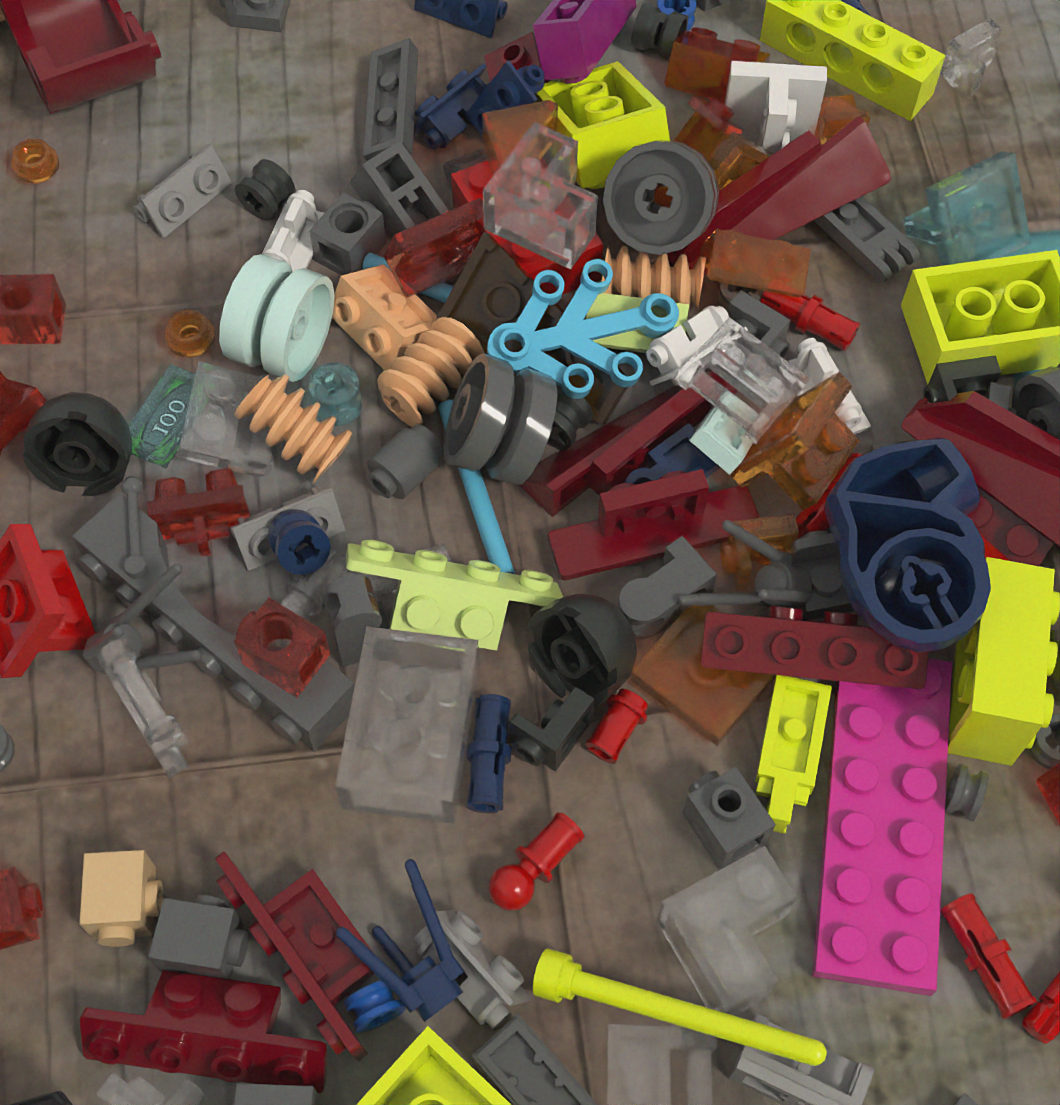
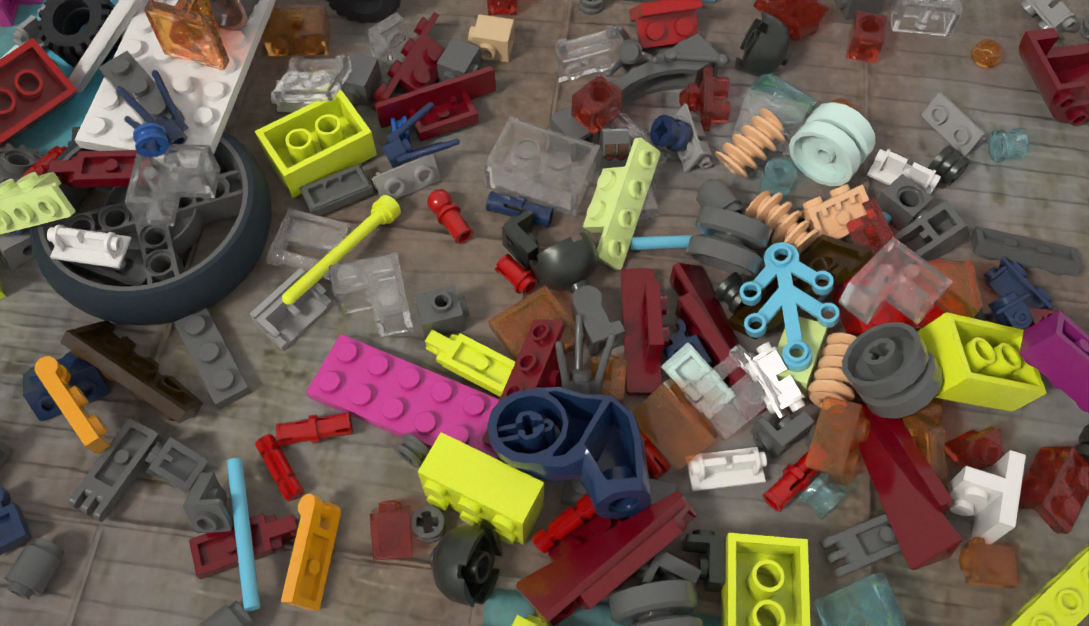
camera: 105 degrees right, 0 degrees up
(212, 124) = (1008, 144): none -> clear light blue wheel
(829, 277) = (822, 495): none -> clear light blue wheel

